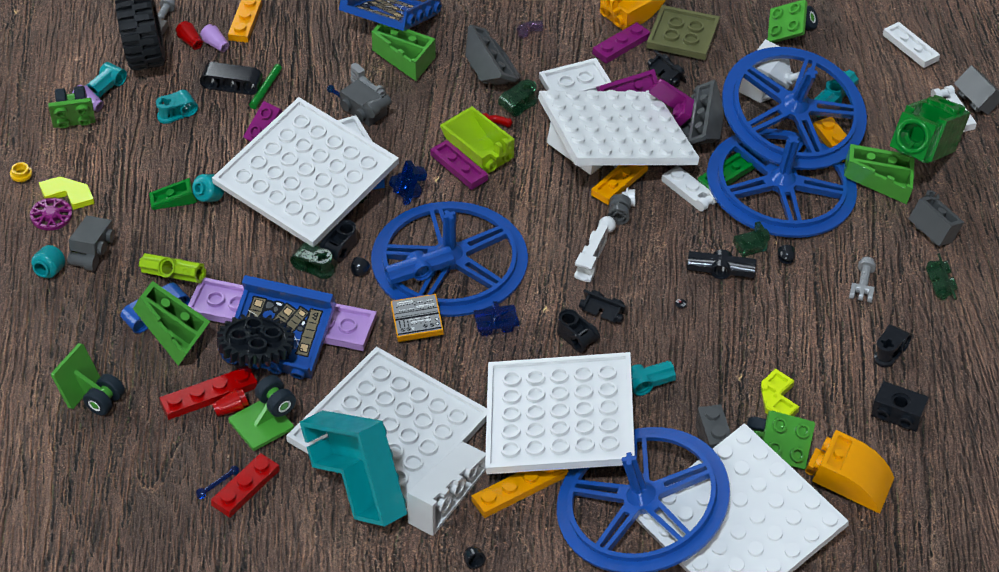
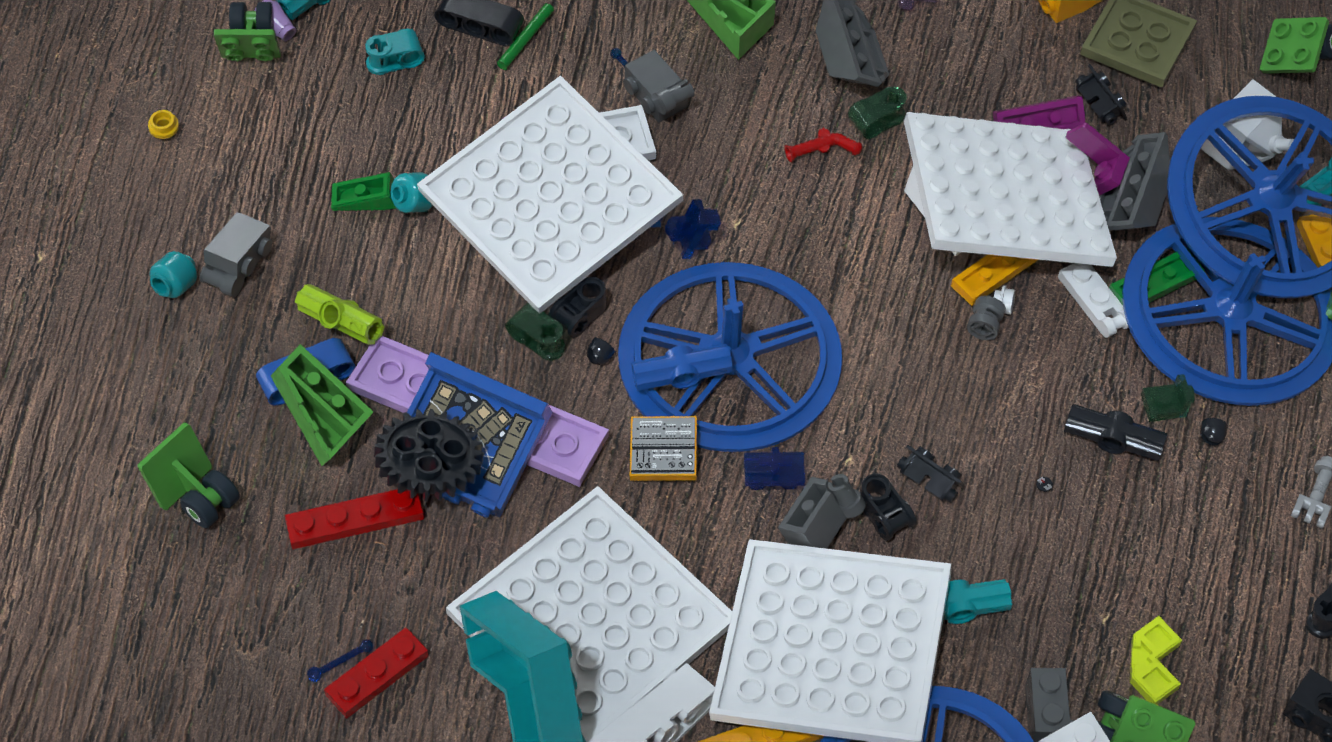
camera: 10 degrees right, 10 degrees up
(51, 214) = (192, 196): magenta wheel -> none
(59, 187) = (215, 156): neon yellow tile -> none
(231, 403) = (381, 541): red cone -> none
(262, 119) = (509, 96): magenta bracket -> none
(266, 418) = (423, 573): bright green plate -> none
(358, 73) = (657, 41): light grey hinge -> none
(459, 164) = (772, 207): magenta plate -> none
(479, 139) = (806, 175): lime piece -> none
(534, 336) = (821, 511): none -> dark grey hinge
(576, 76) = (965, 91): white plate -> none
(588, 258) = (922, 397): white plate -> none
(621, 43) = (1045, 40): magenta plate -> none

